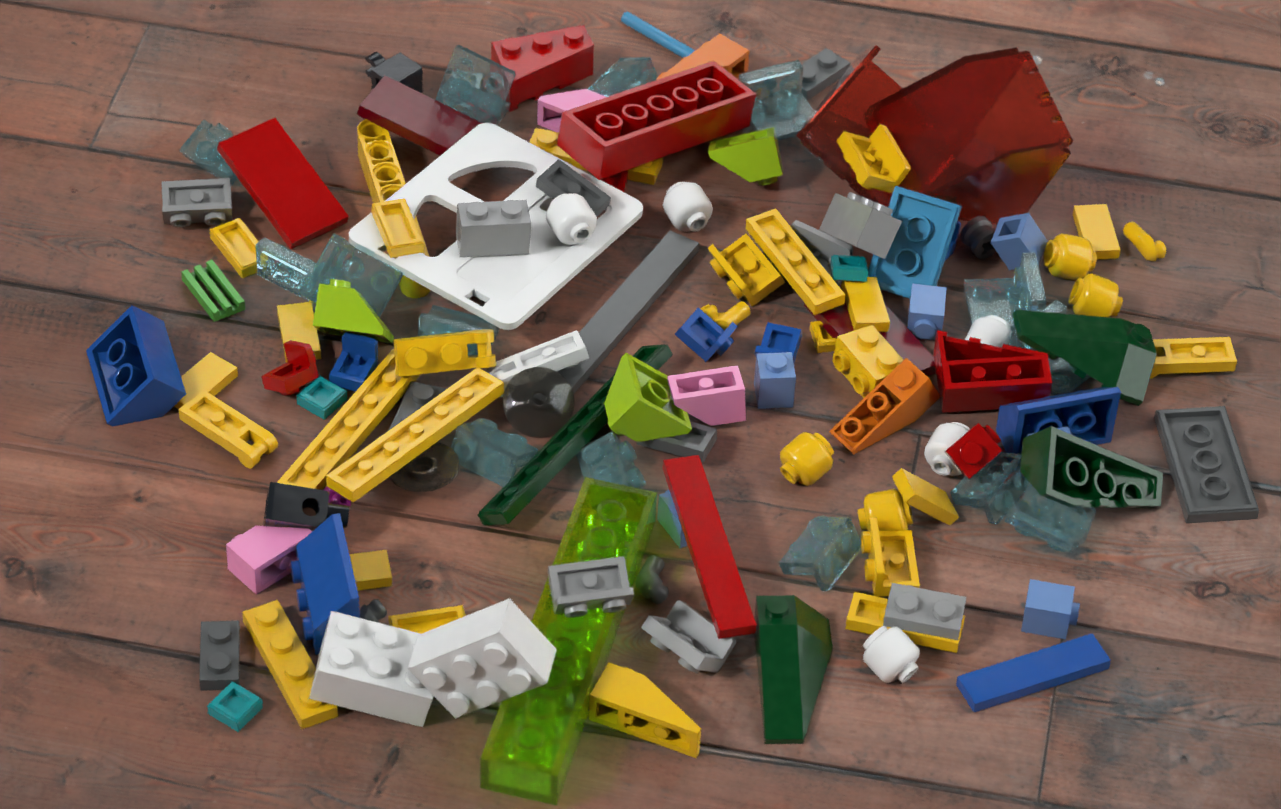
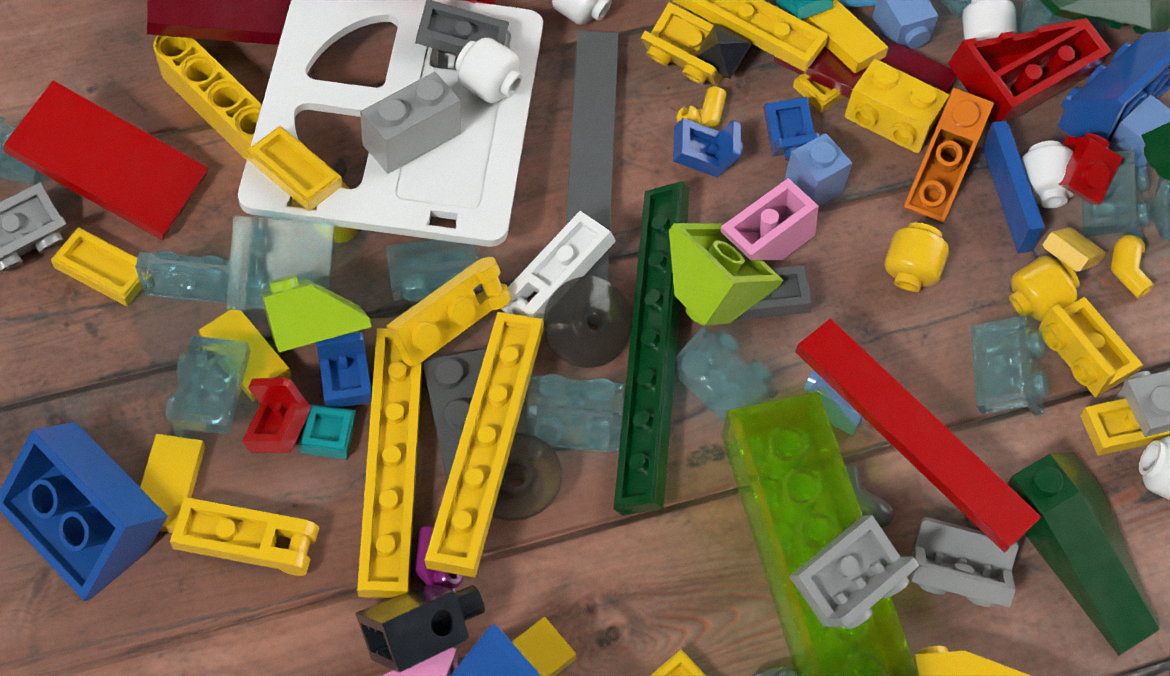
camera: 30 degrees left, 15 degrees up
(222, 282) = (77, 325): bright green tile -> none
(259, 334) = (208, 386): none -> clear light blue bracket
(762, 279) = (723, 50): none -> black slope
(921, 434) = (1013, 187): none -> blue tile
(966, 529) = (1126, 265): none -> yellow arm

